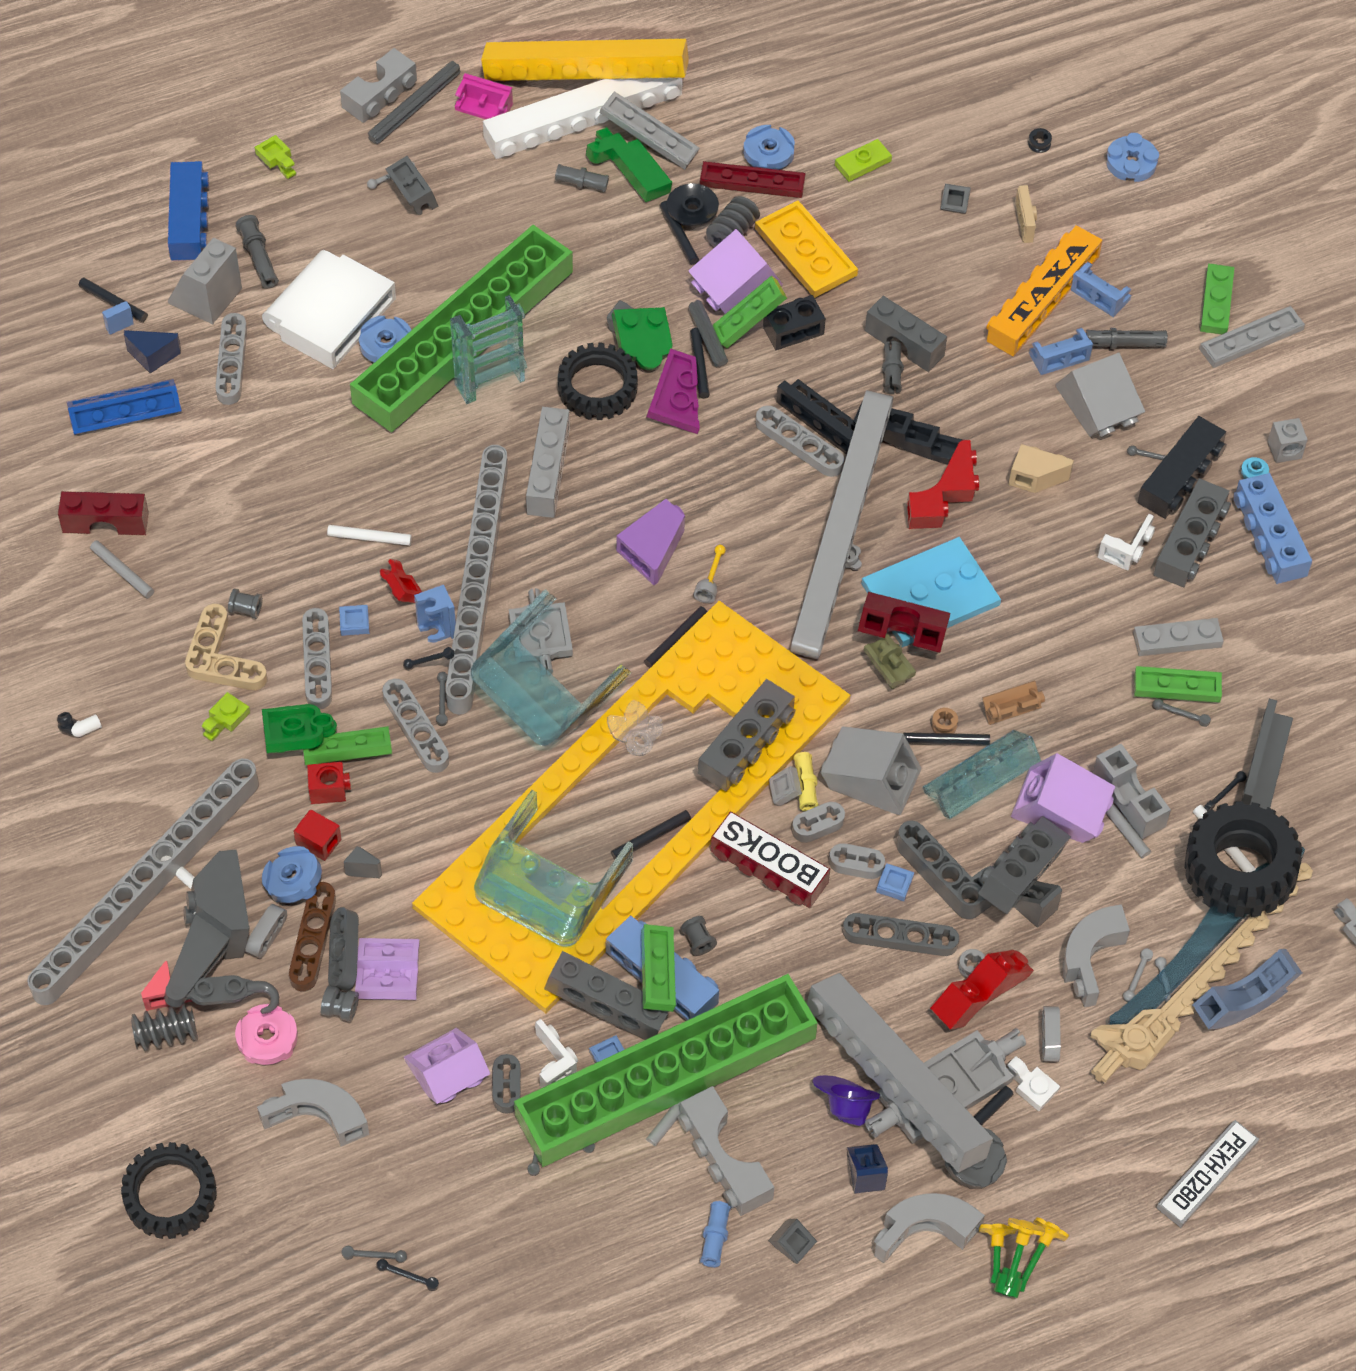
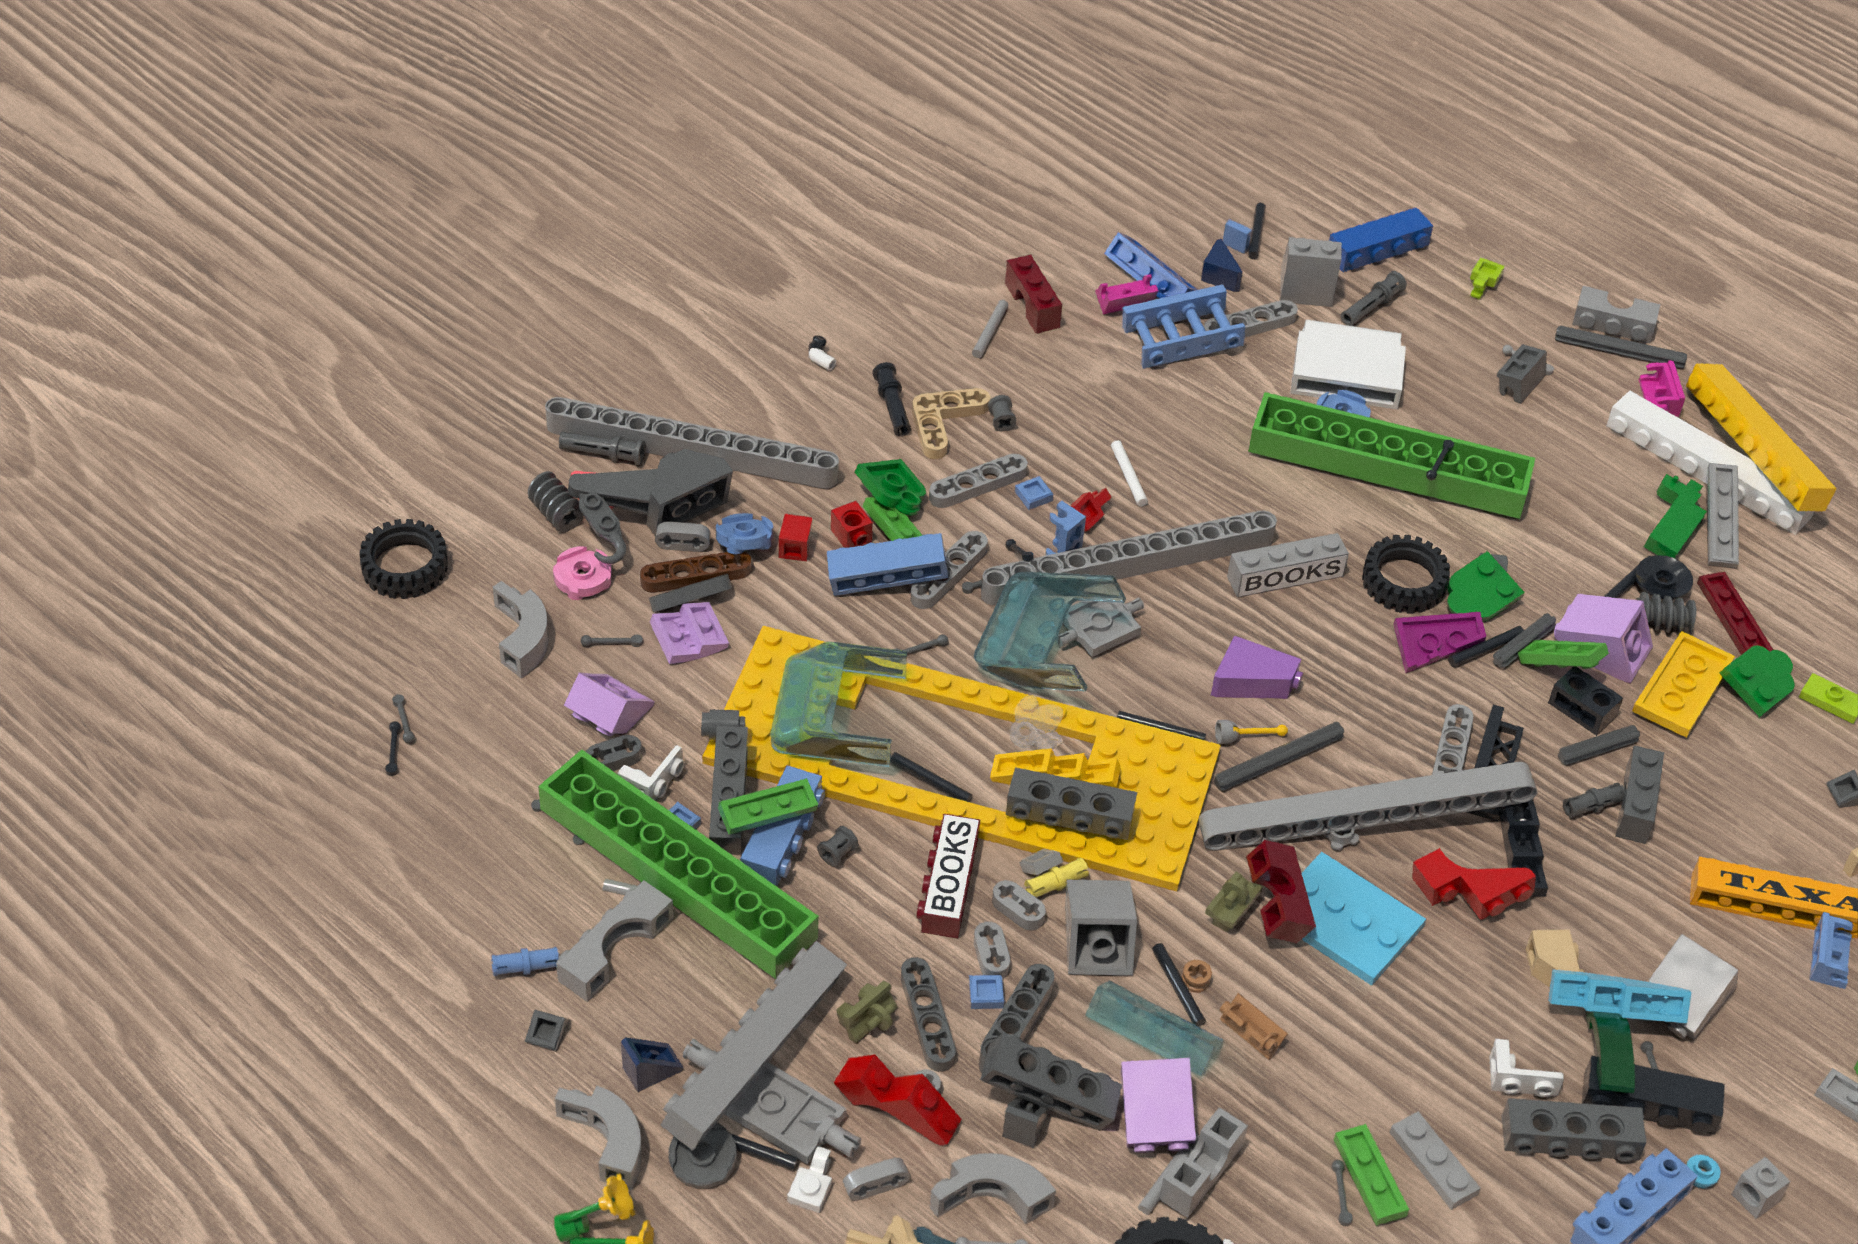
camera: 65 degrees right, 10 degrees down
(115, 950) = (615, 448): none -> dark grey pin
(145, 438) = (1118, 296): none -> dark pink hinge
(165, 684) = (890, 390): none -> black pin
(194, 396) = (1177, 308): none -> medium blue fence
(225, 714) = (884, 442): lime plate -> none
(339, 1003) = (635, 608): dark grey wheel -> none
(362, 864) = (782, 576): dark grey slope -> none
(372, 1018) = (635, 640): none -> dark grey hinge
(400, 769) = (887, 564): none -> medium blue brick
(465, 349) = (1338, 463): clear light blue fence -> none
(488, 279) = (1447, 446): none -> black hinge
(494, 807) = (941, 640): none -> dark grey hinge
(532, 975) = (716, 718): none -> dark grey brick
(582, 177) = (1630, 488): dark grey pin -> none
(693, 735) = (1044, 760): none -> yellow slope
(748, 564) = (1279, 756): none -> dark grey axle
(764, 135) = (1785, 630): medium blue plate -> none
(826, 195) = (1760, 677): none -> green plate
(838, 336) = (1599, 744): none -> dark grey axle
(846, 1099) = (716, 1015): dark purple piece -> none
(876, 966) = (870, 1012): none -> olive hips
(1062, 353) = (1720, 941): medium blue hinge -> none
(1101, 437) = (1620, 996): none -> medium azure slope
(1134, 338) = (1778, 985): dark grey pin -> none
(1138, 465) = (1615, 1051): none -> dark green slope

